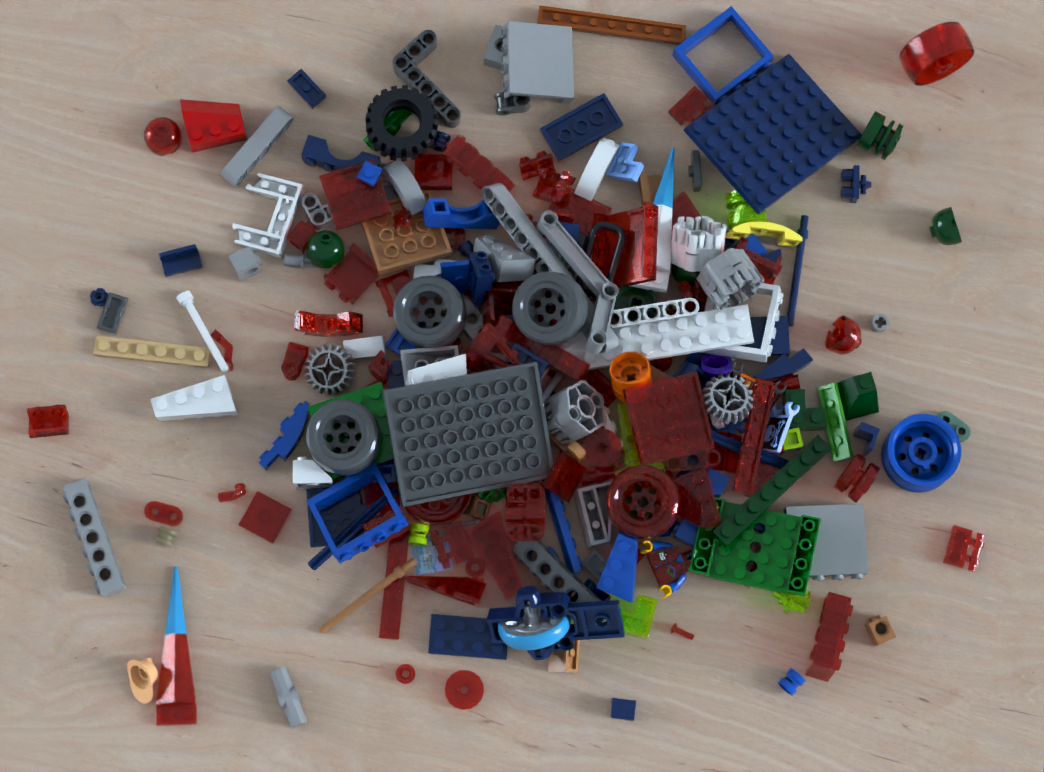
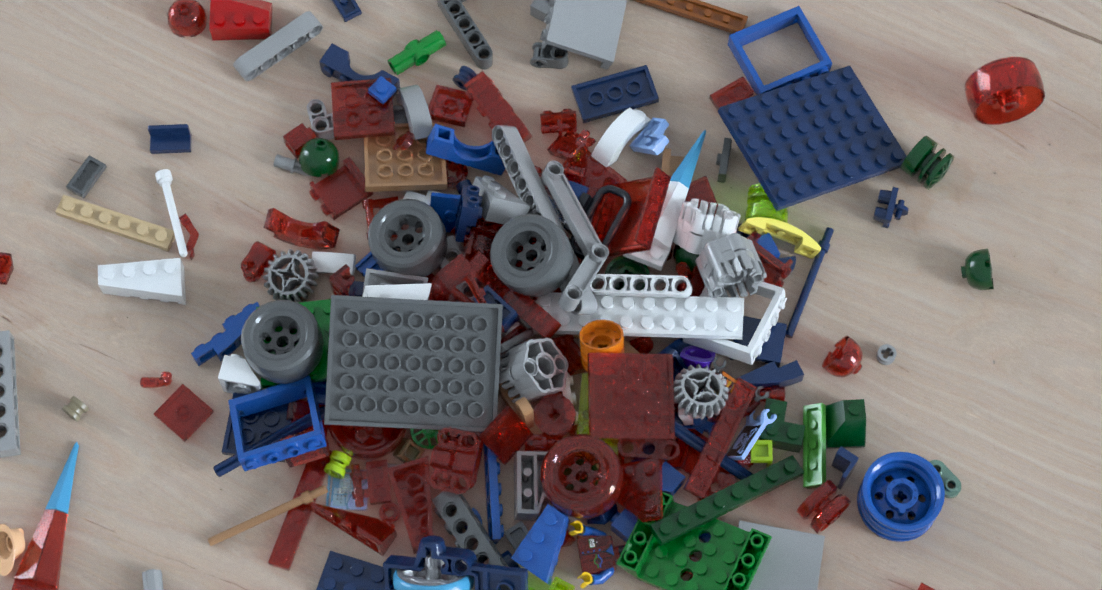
camera: 20 degrees right, 10 degrees down
(94, 297) = (74, 154): dark blue plate -> none
(164, 513) = (80, 386): clear red plate -> none
(246, 263) = (233, 154): light grey brick -> none
(275, 239) = (270, 140): white wedge -> none
(395, 100) = (422, 26): black tyre -> none

